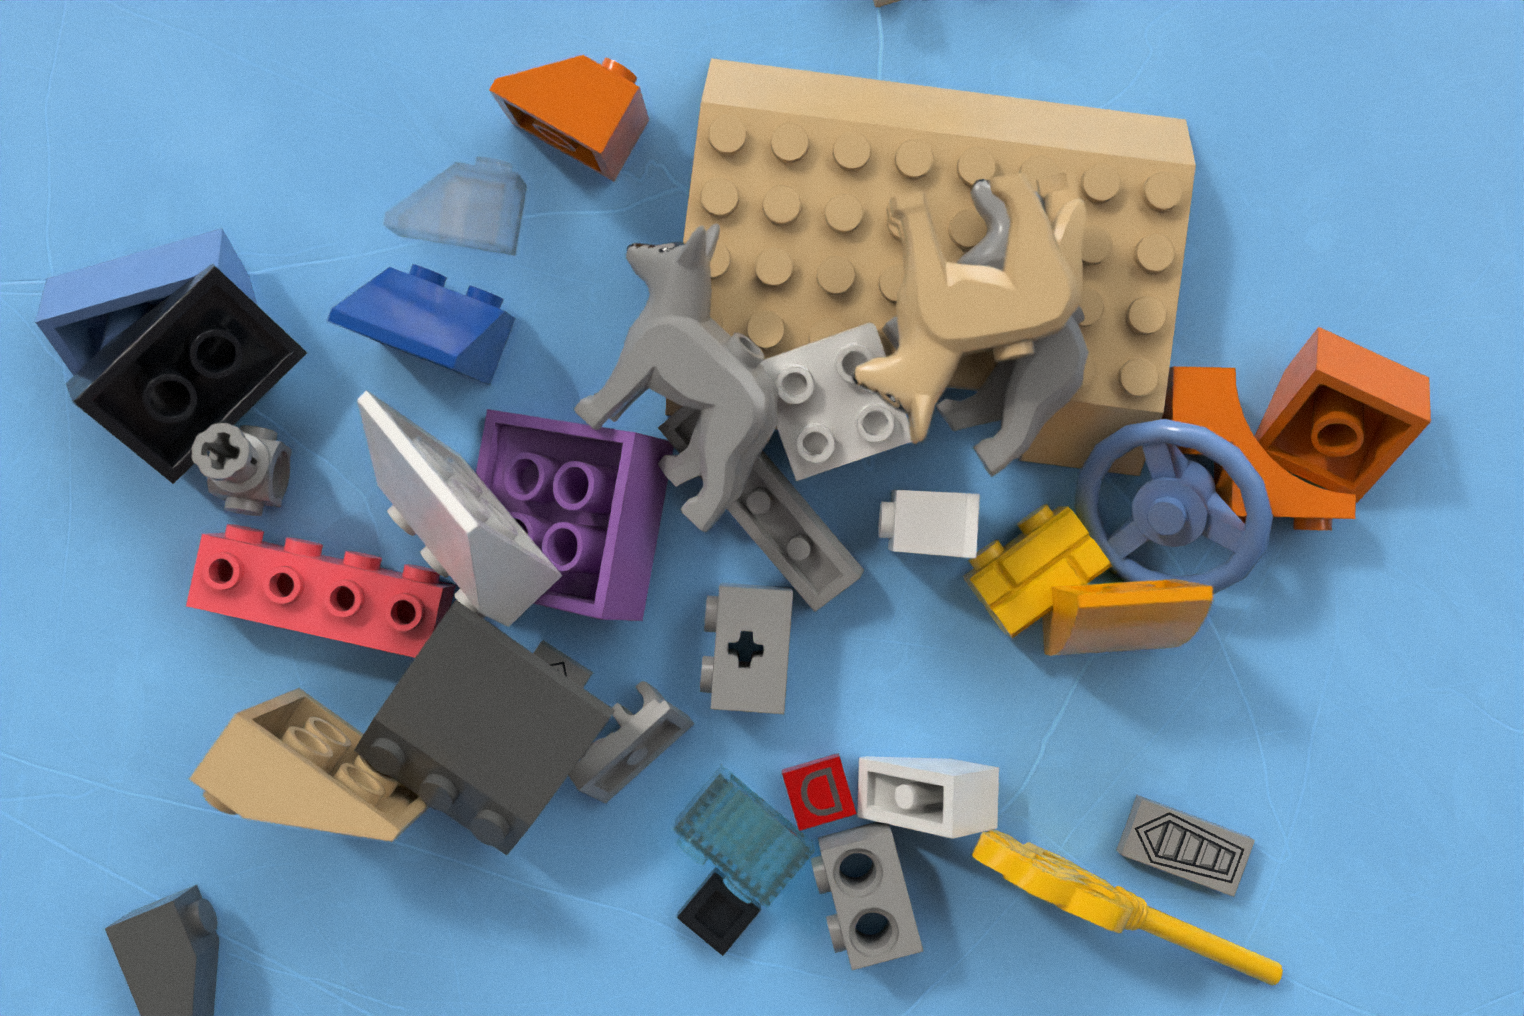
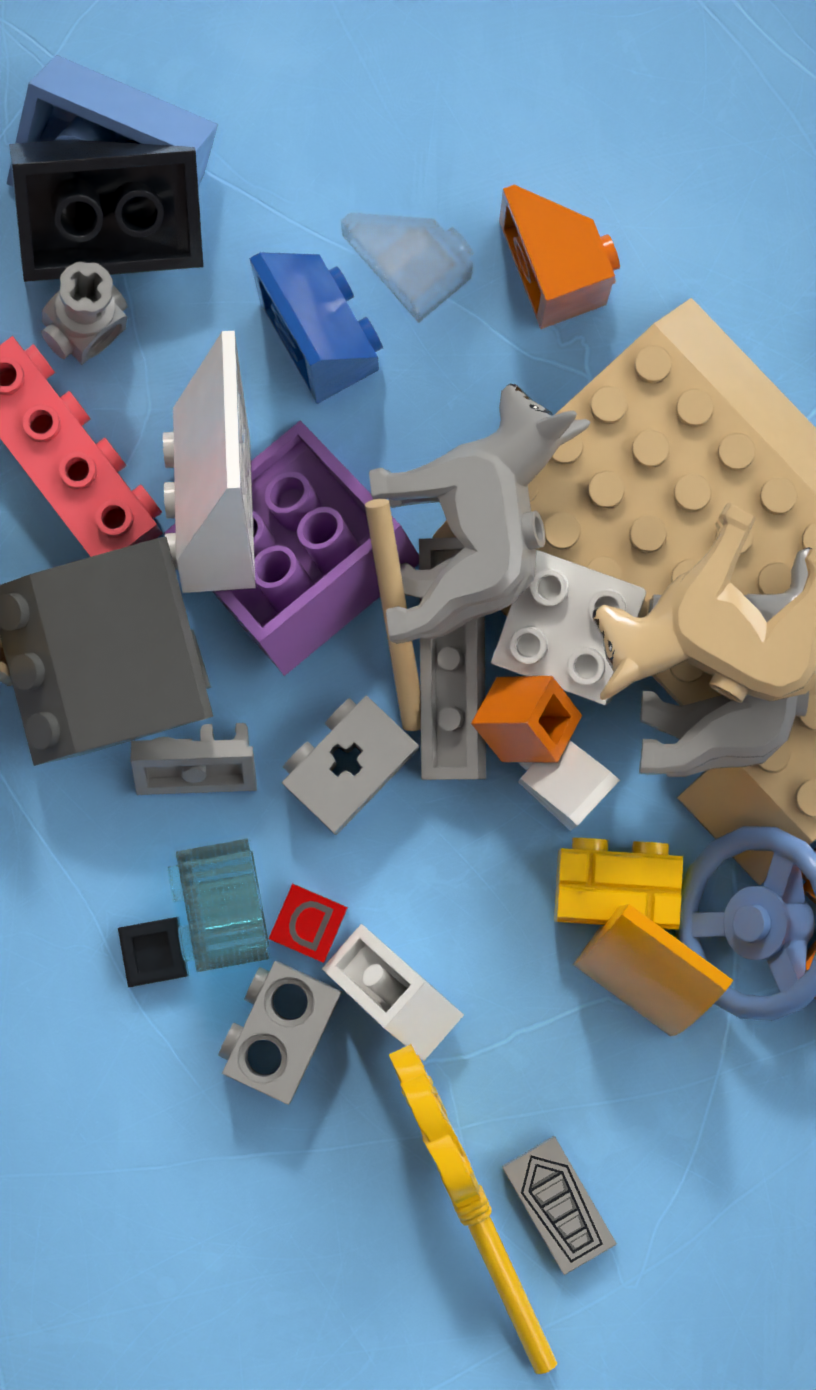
camera: 40 degrees right, 5 degrees down
(677, 493) = (391, 596): none -> tan bar
(861, 501) = (527, 719): none -> orange brick

